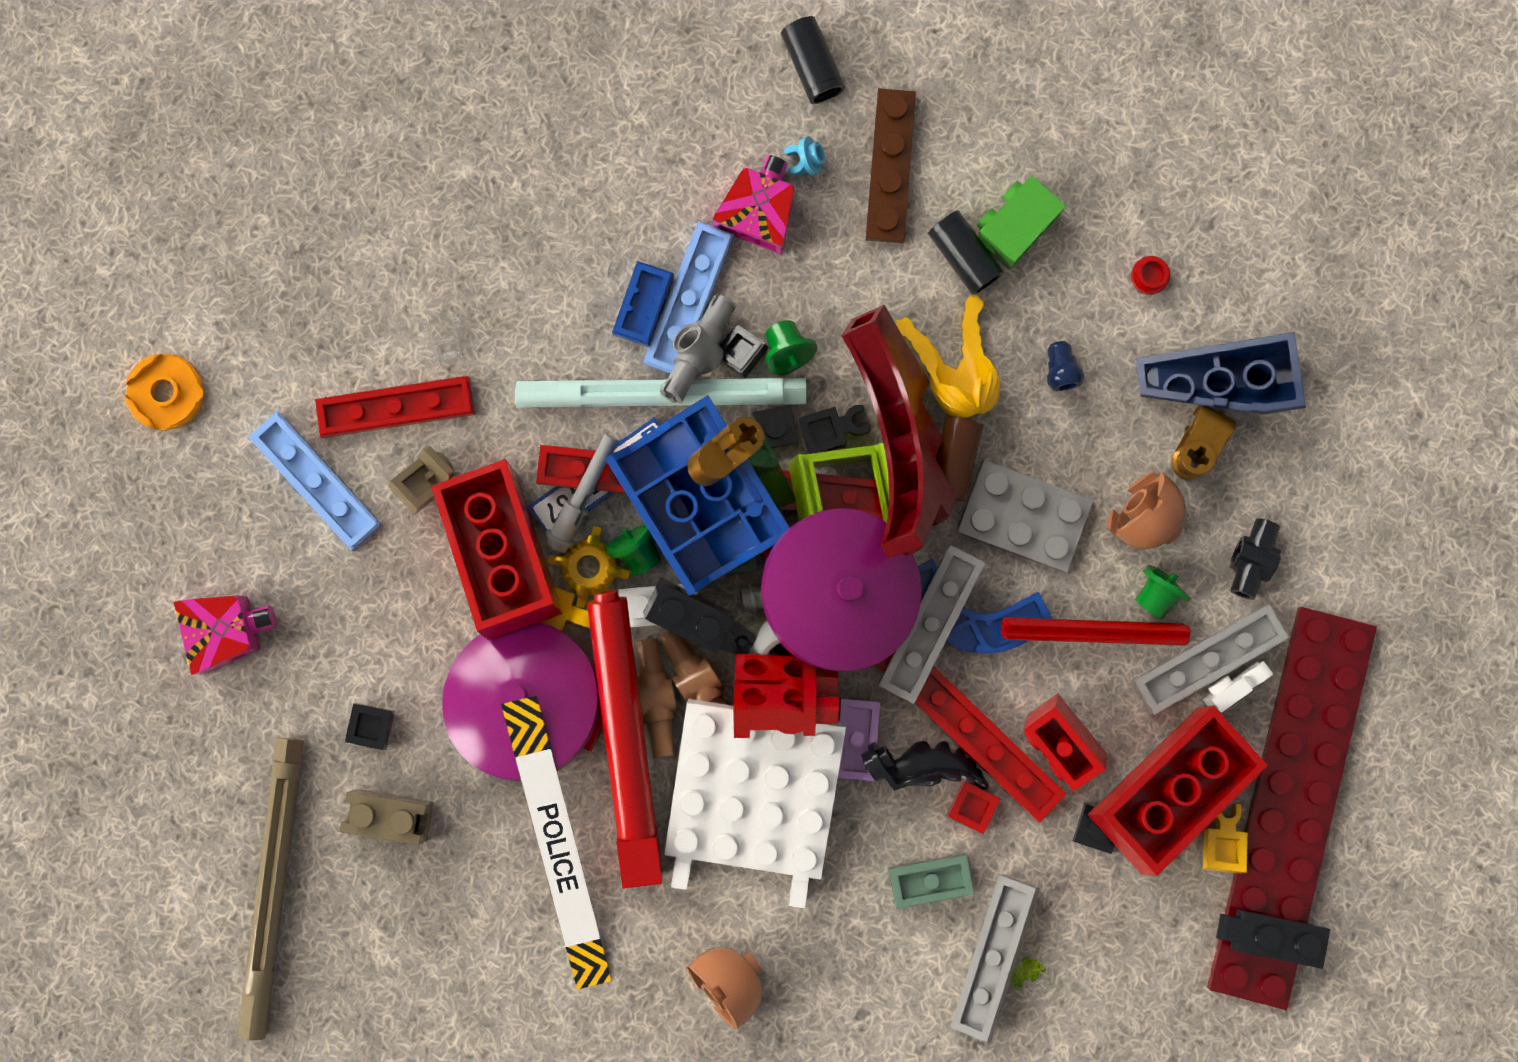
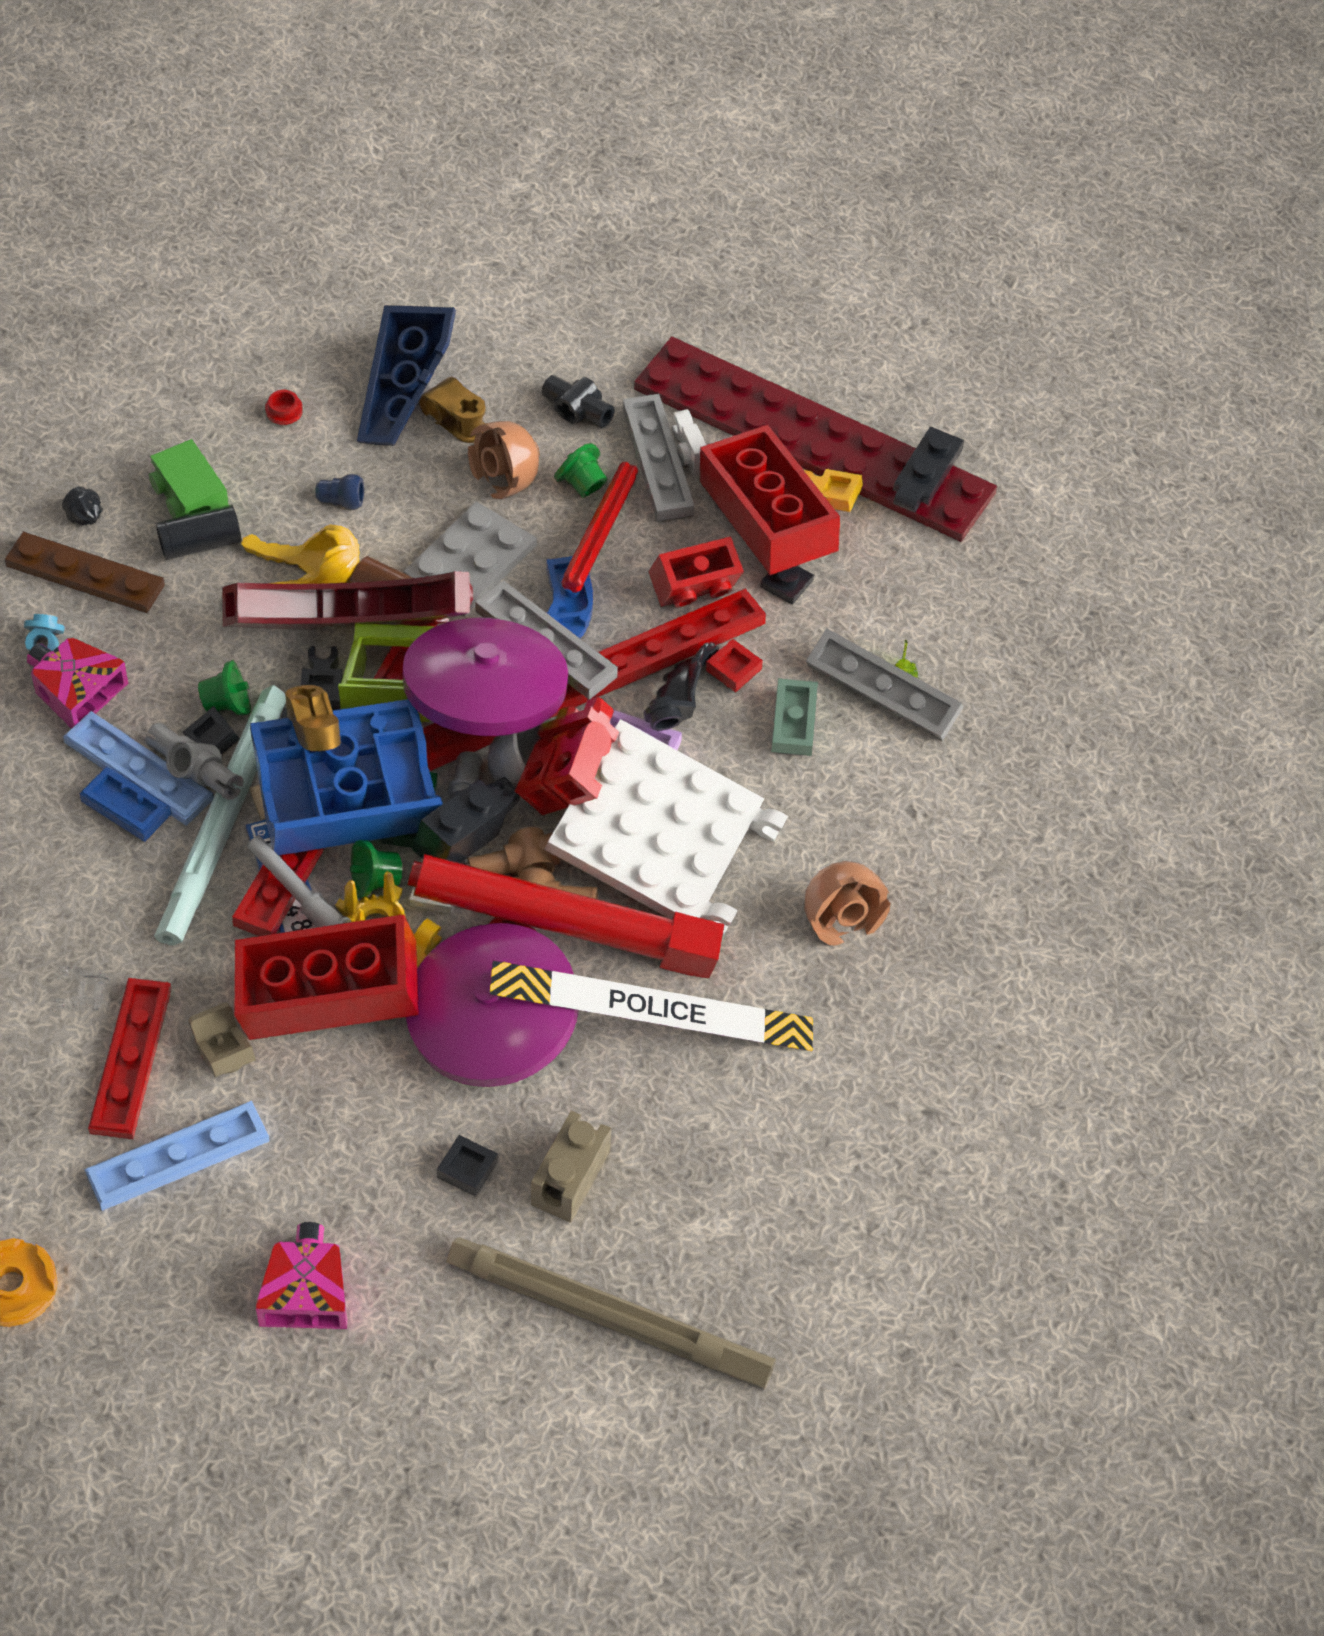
camera: 75 degrees left, 30 degrees down
(963, 134) = (82, 506): none -> black plate

